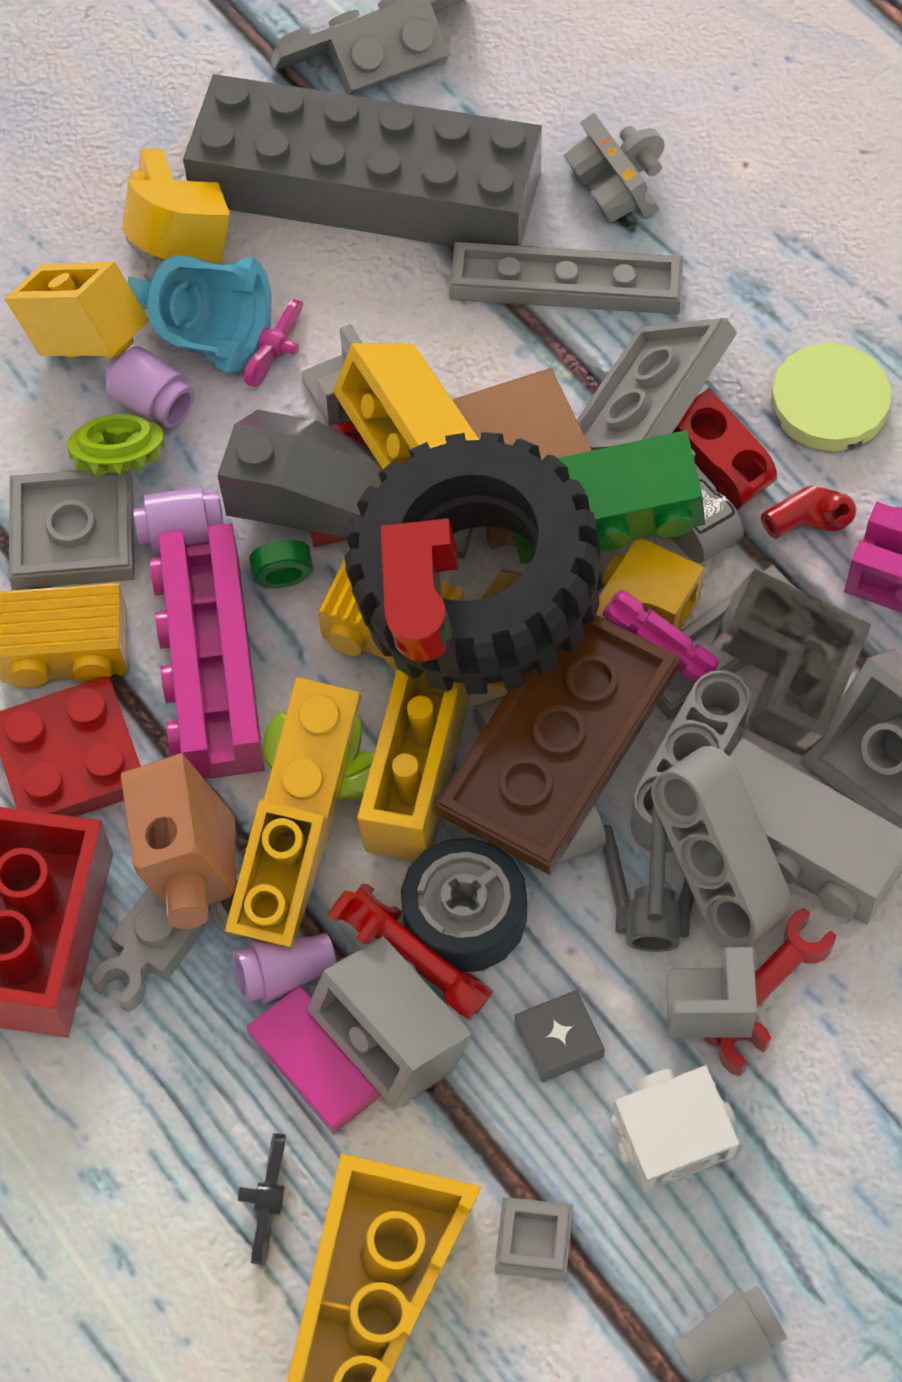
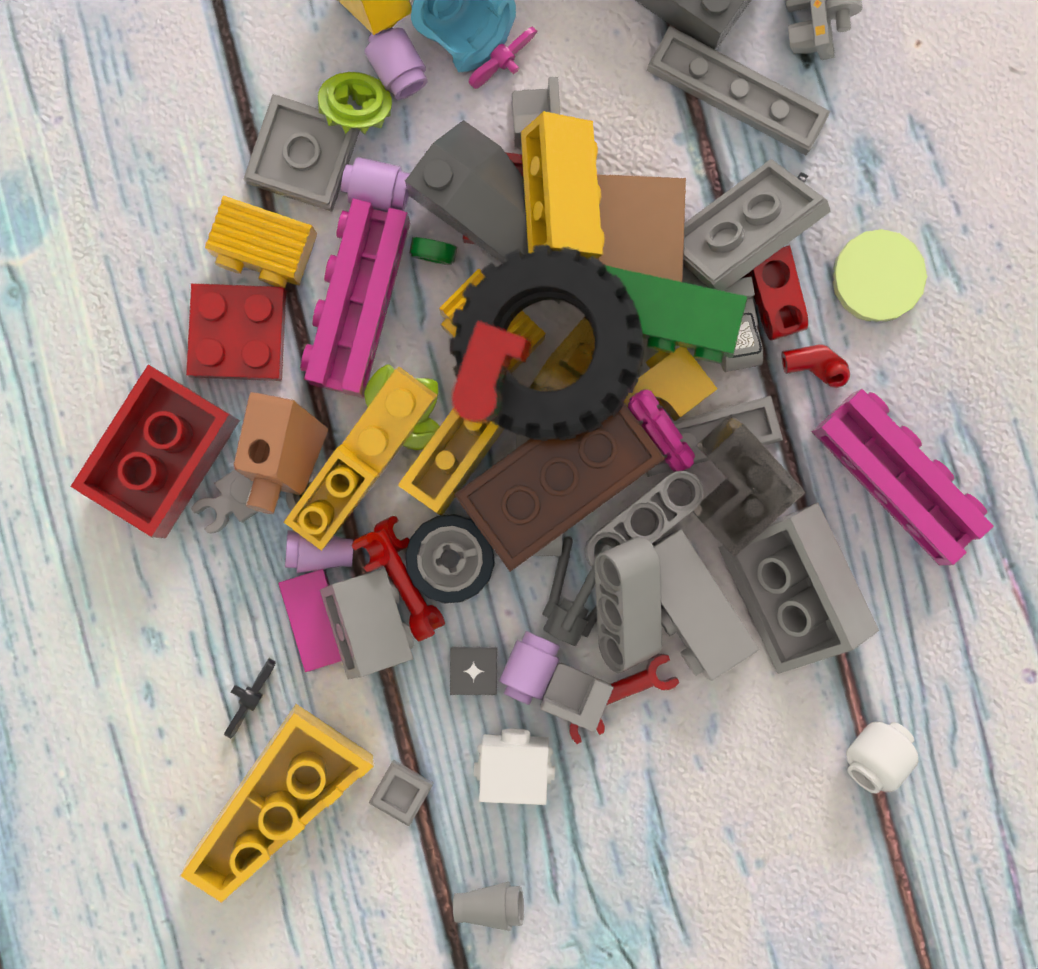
camera: 15 degrees right, 25 degrees up
(632, 994) = (530, 668): none -> lavender brick

